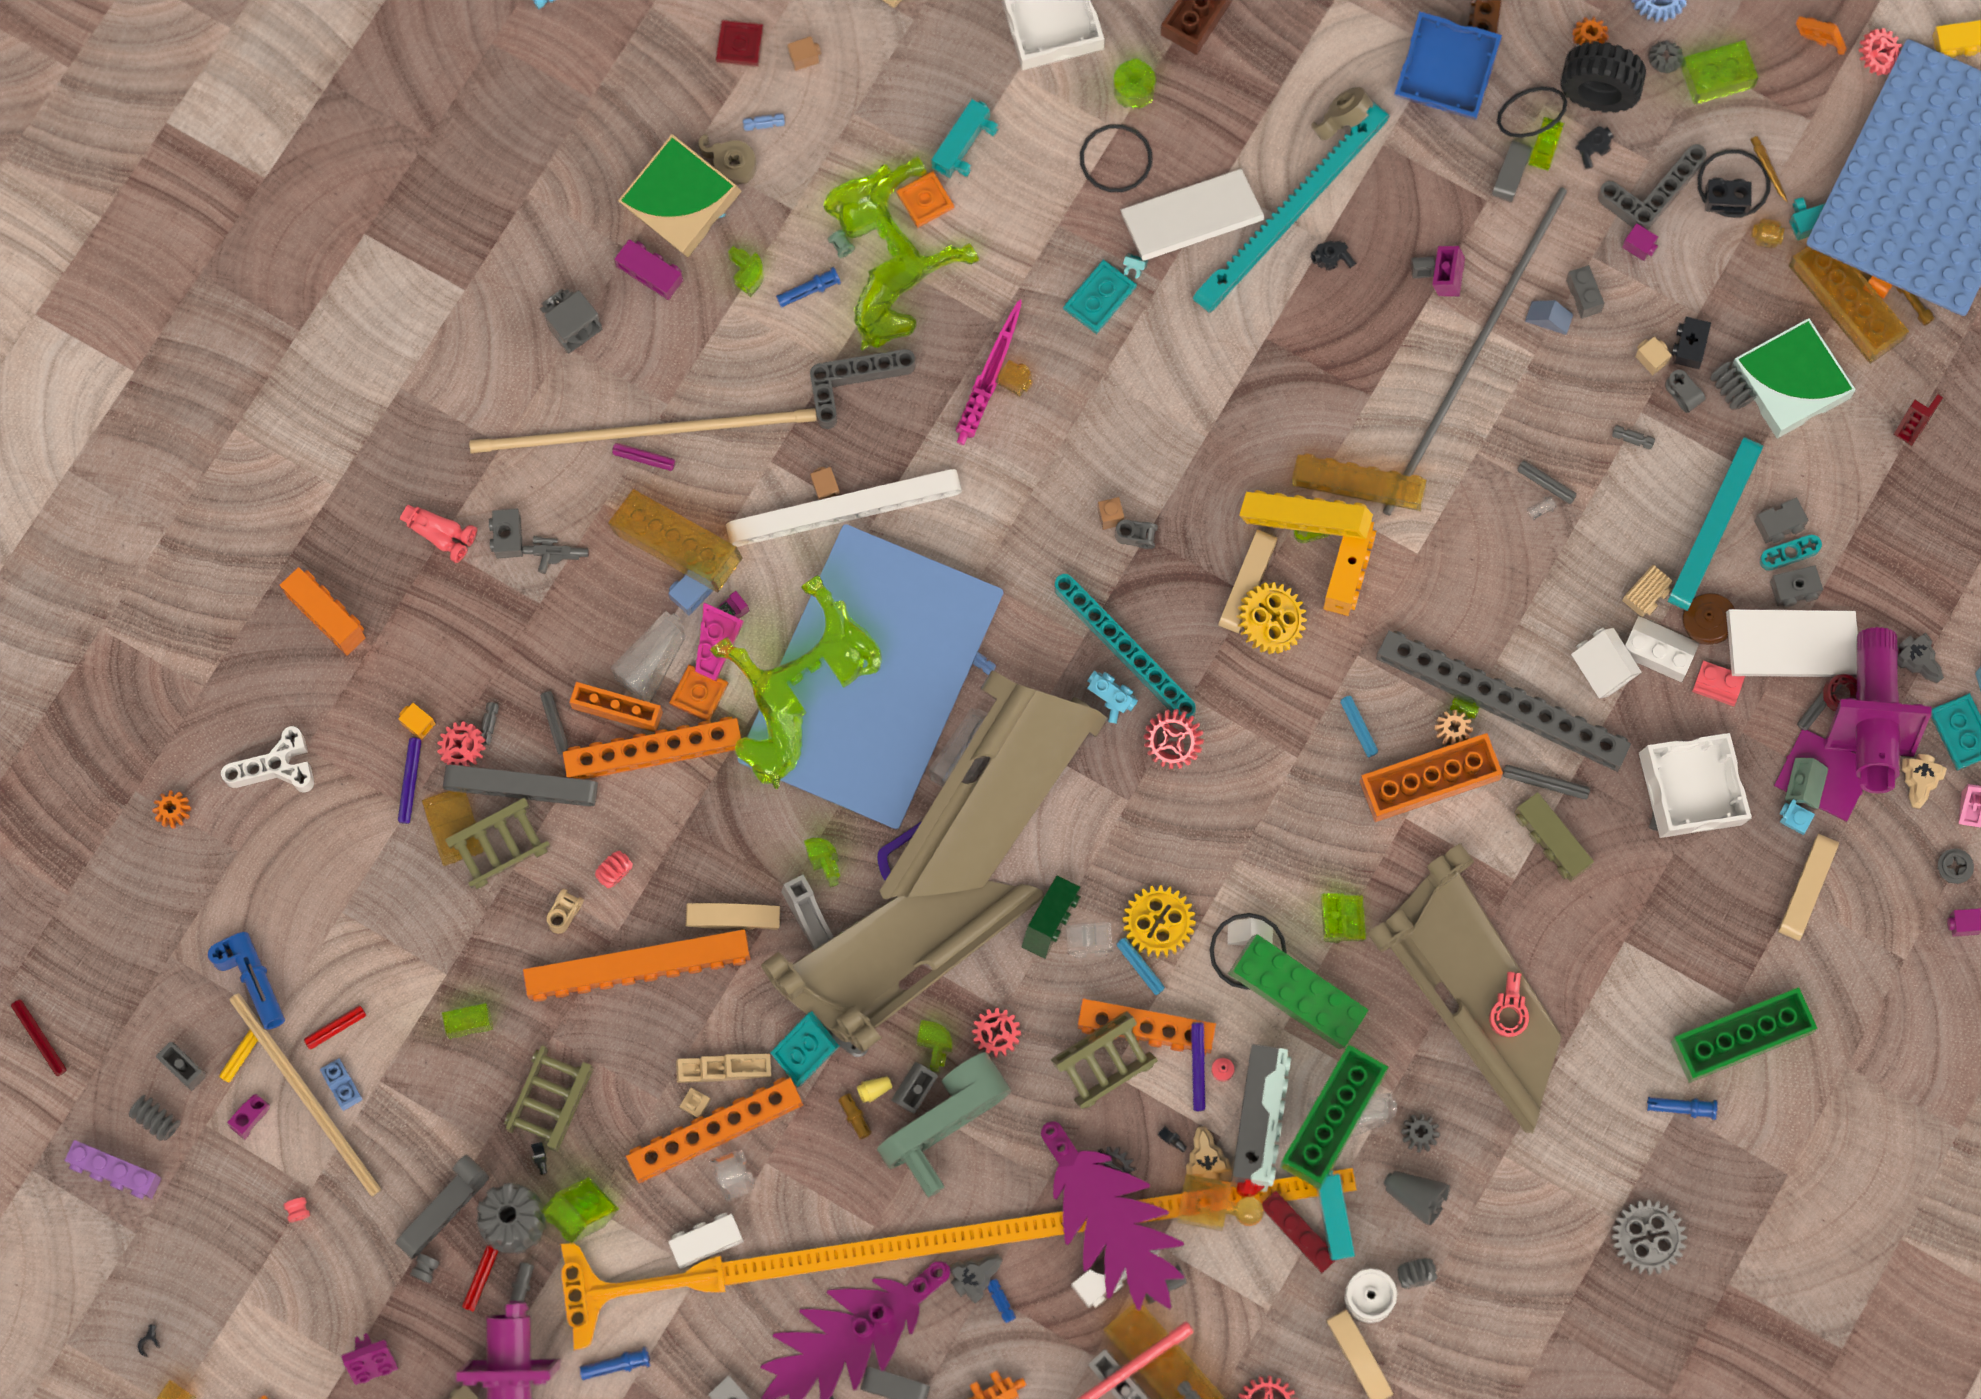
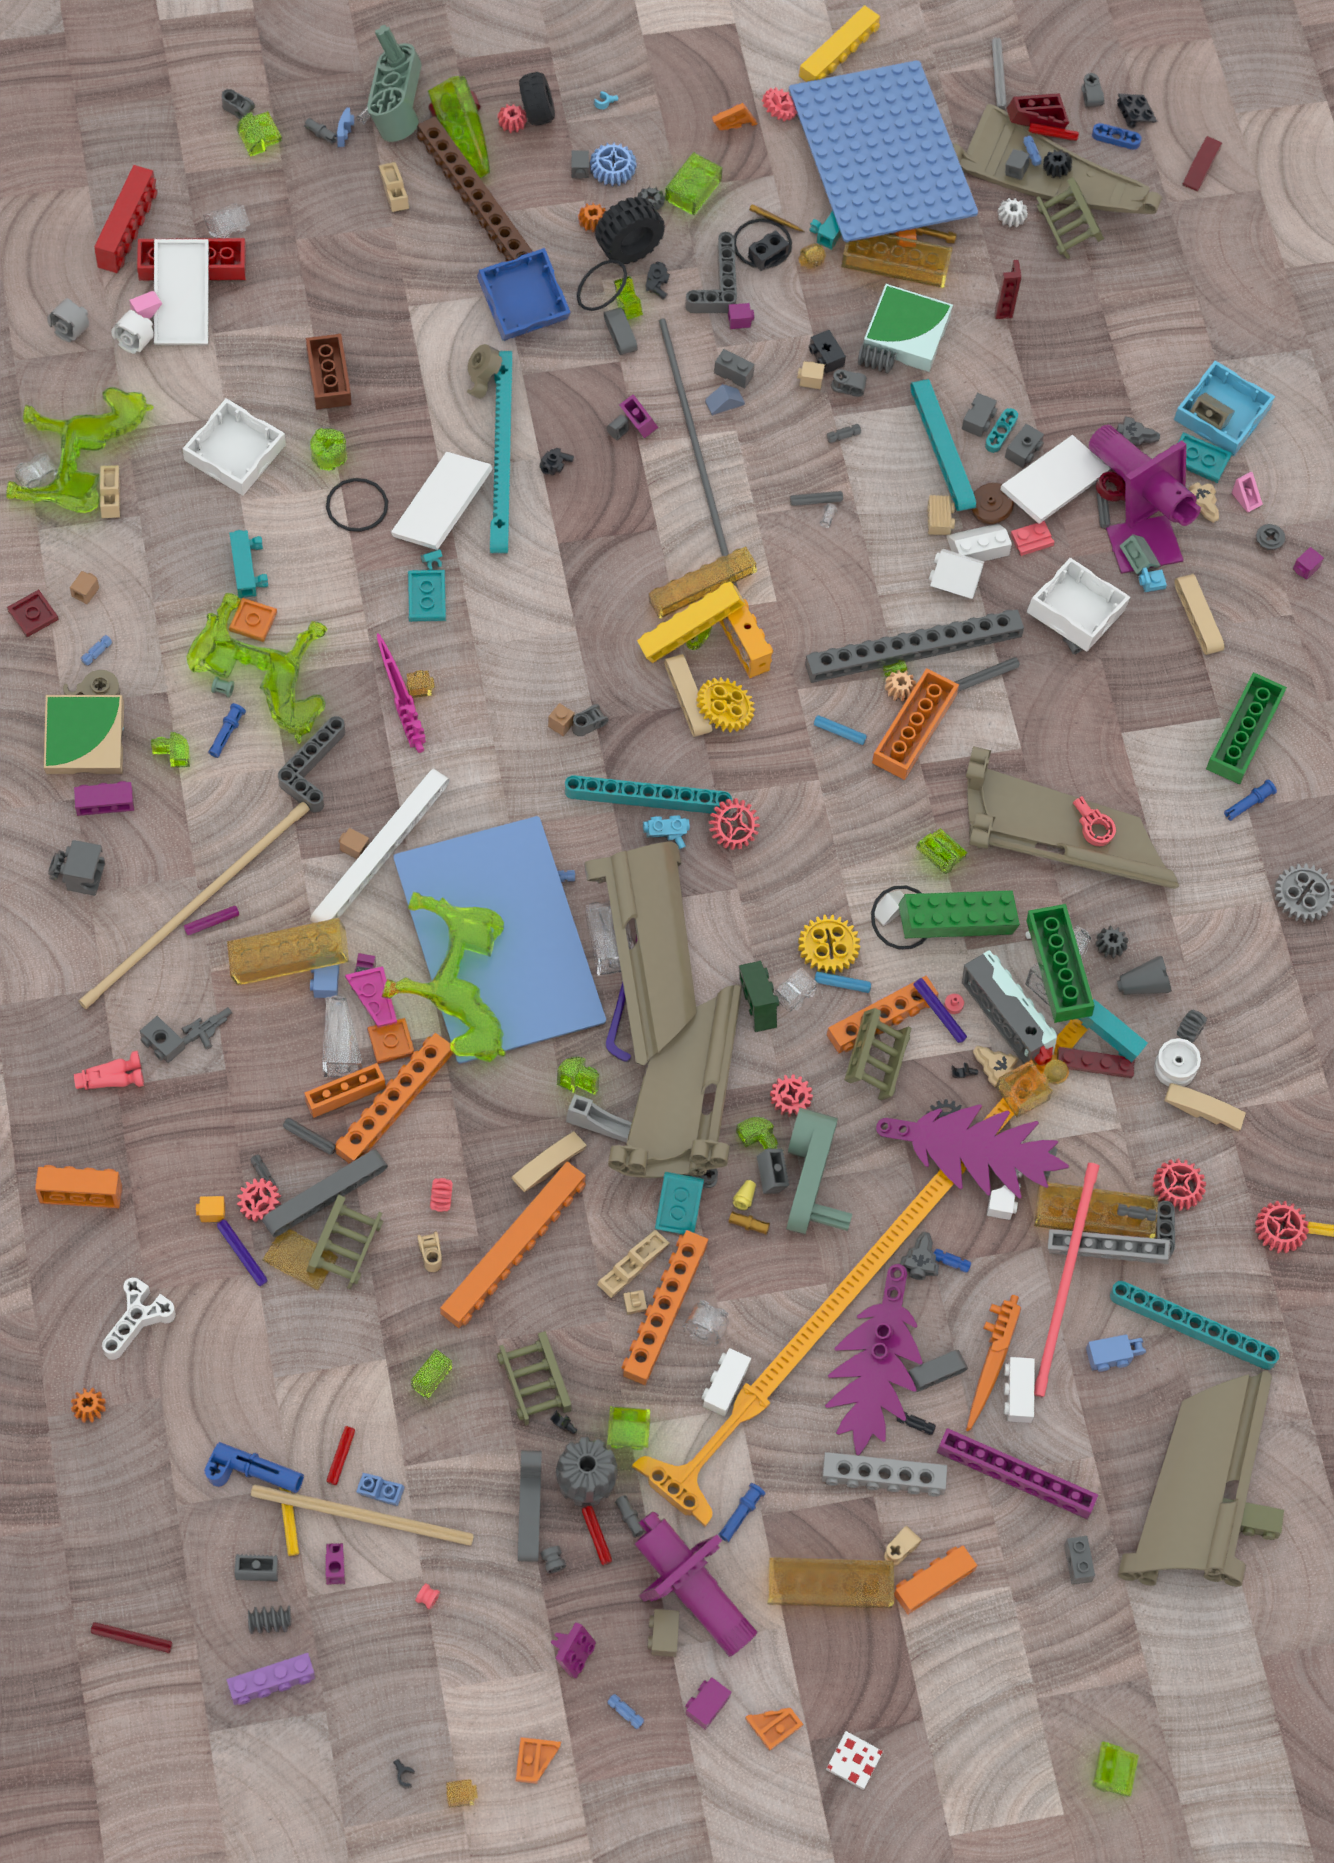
camera: 50 degrees left, 10 degrees down
(1554, 837) = (1022, 702): olive brick -> none

